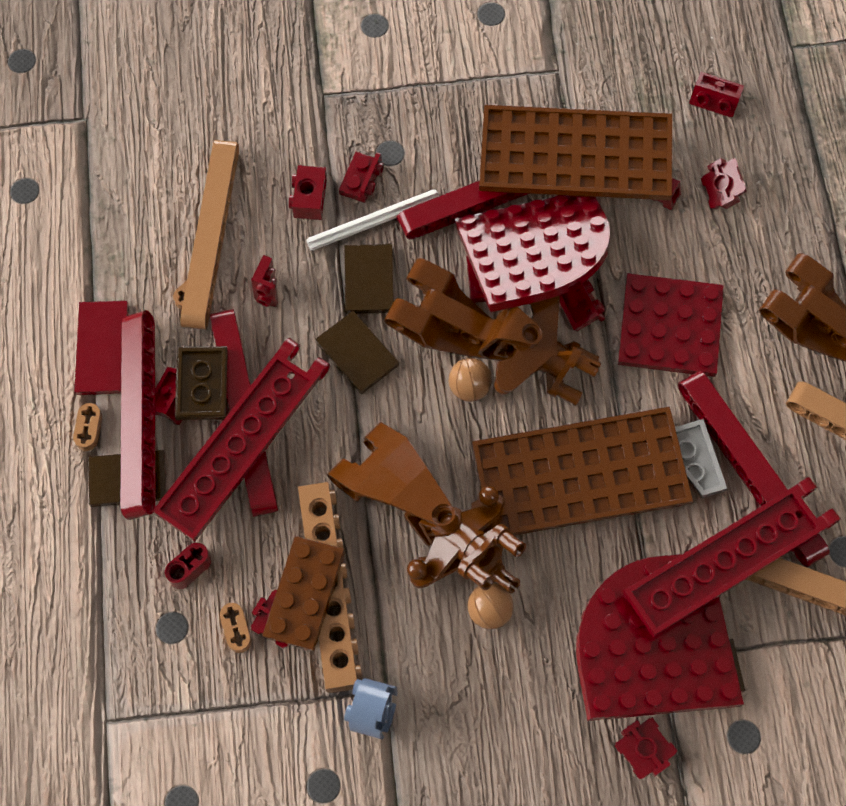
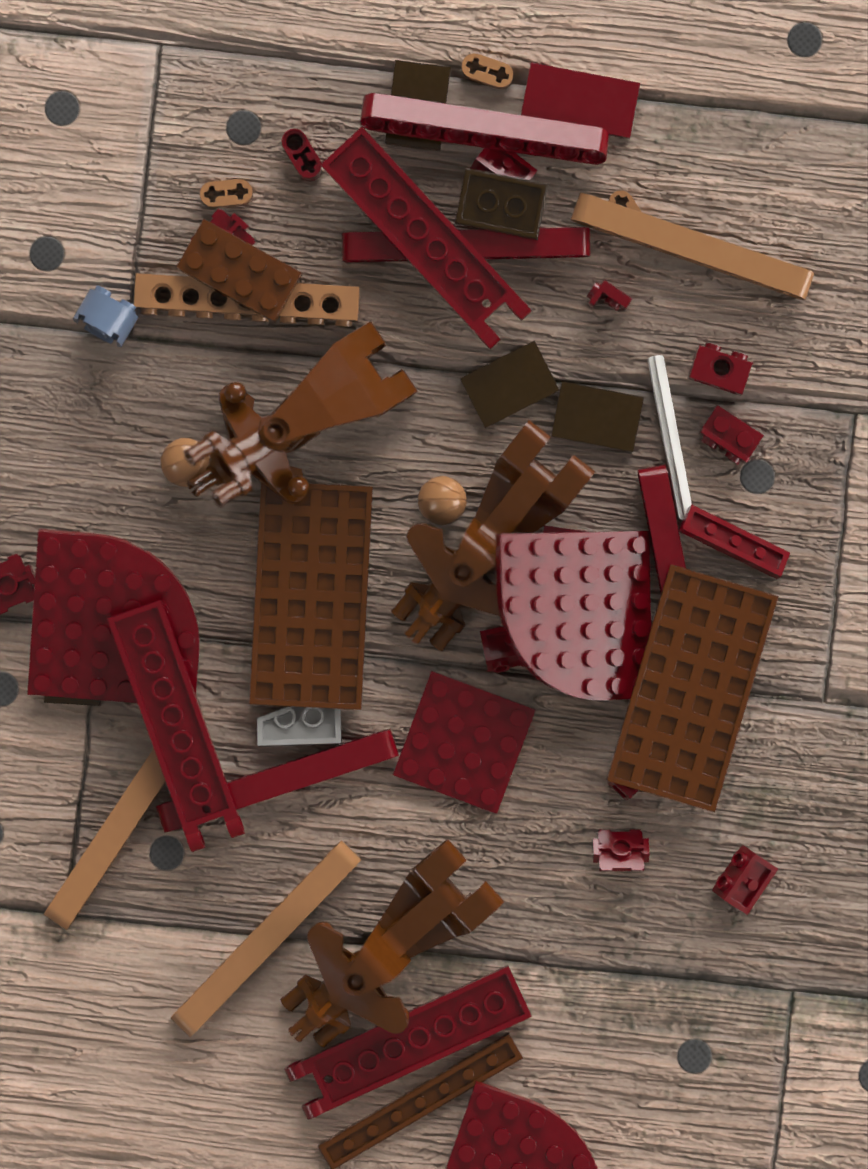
camera: 100 degrees right, 20 degrees up
(447, 152) = (734, 542): none -> dark red plate

